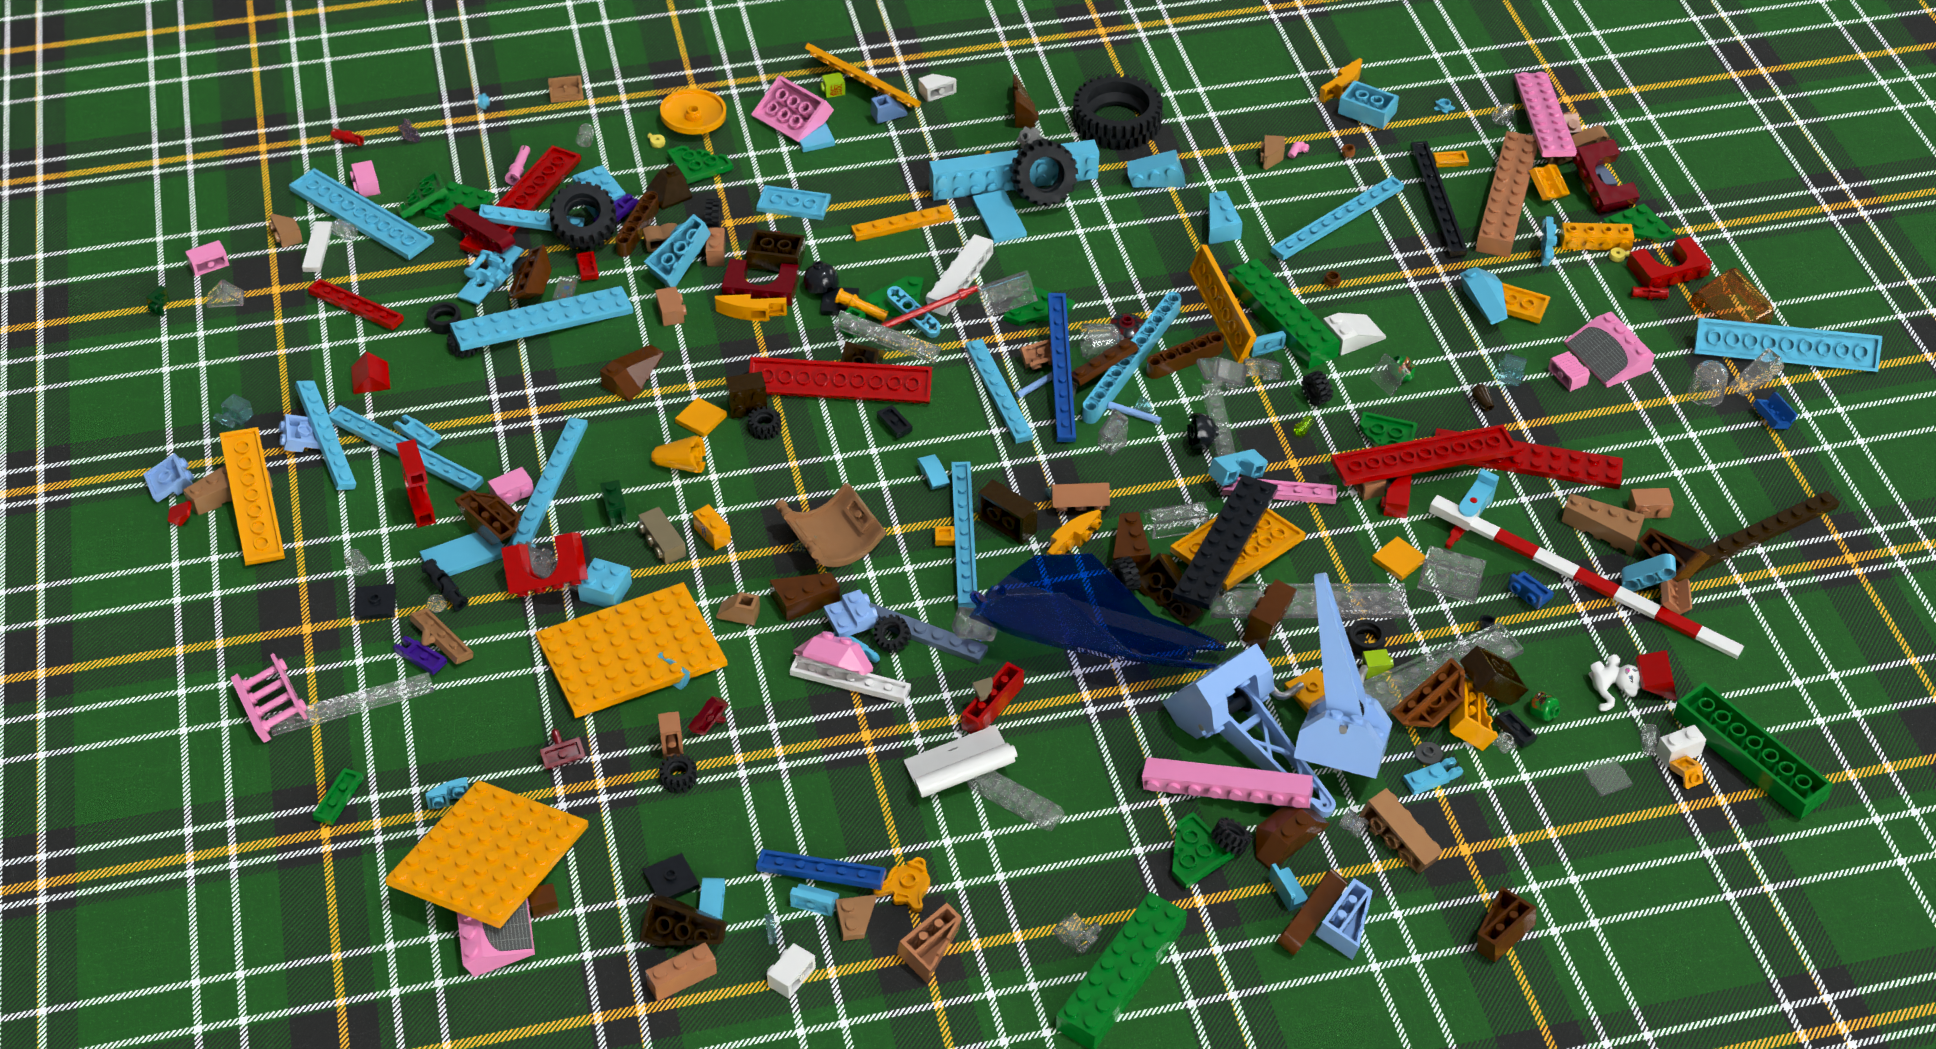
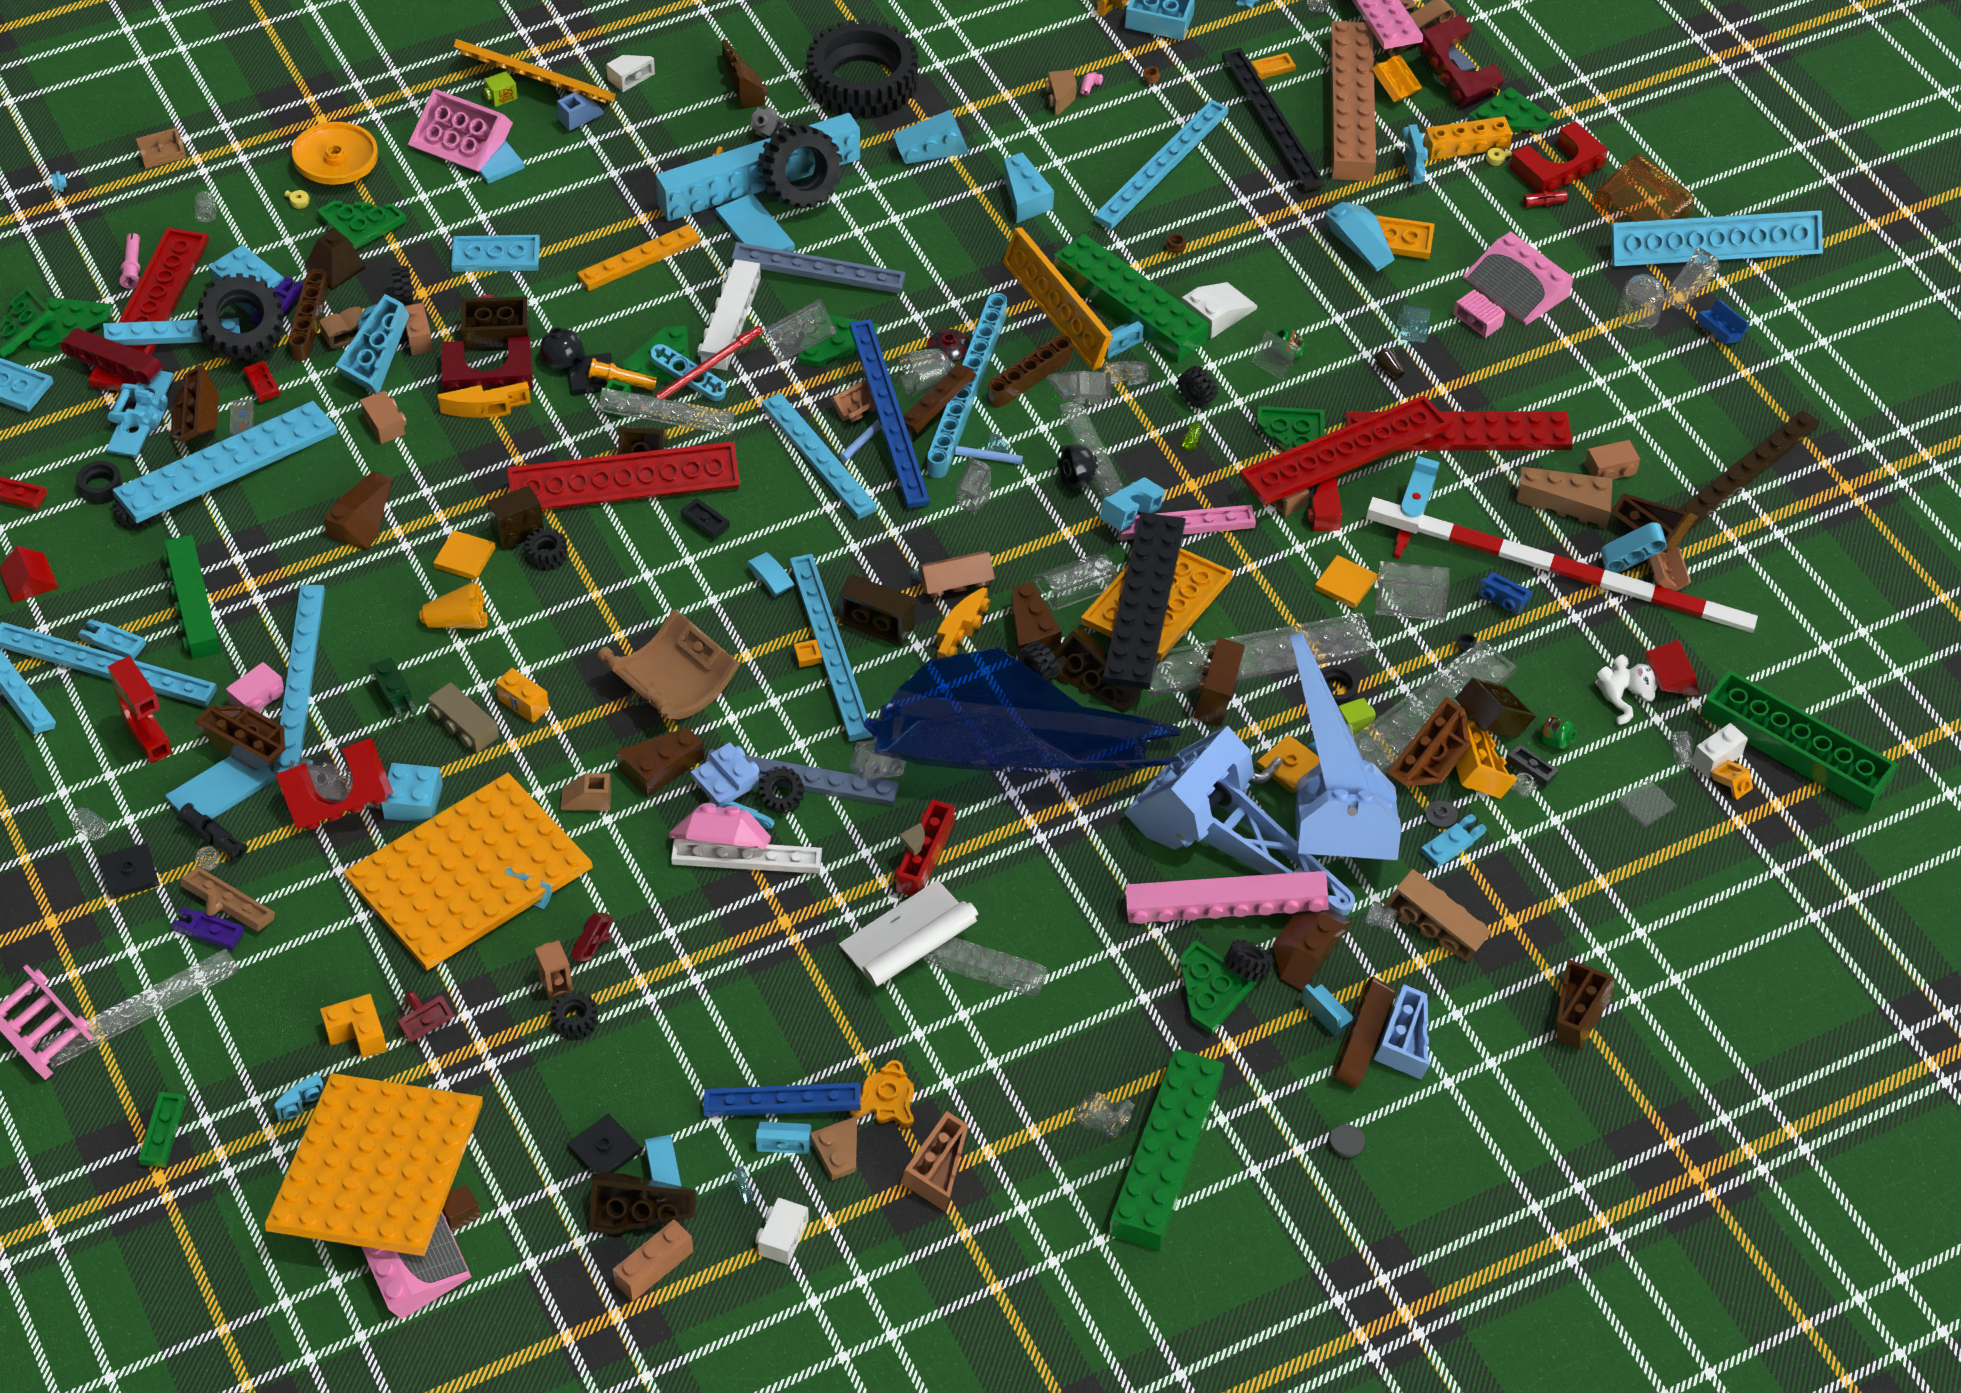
camera: 15 degrees left, 5 degrees up
(485, 411) = (192, 597): none -> green brick
(506, 744) = (353, 1020): none -> light orange brick
(1041, 252) = (821, 268): none -> sand blue plate
(1275, 995) = (1347, 1140): none -> dark grey piece

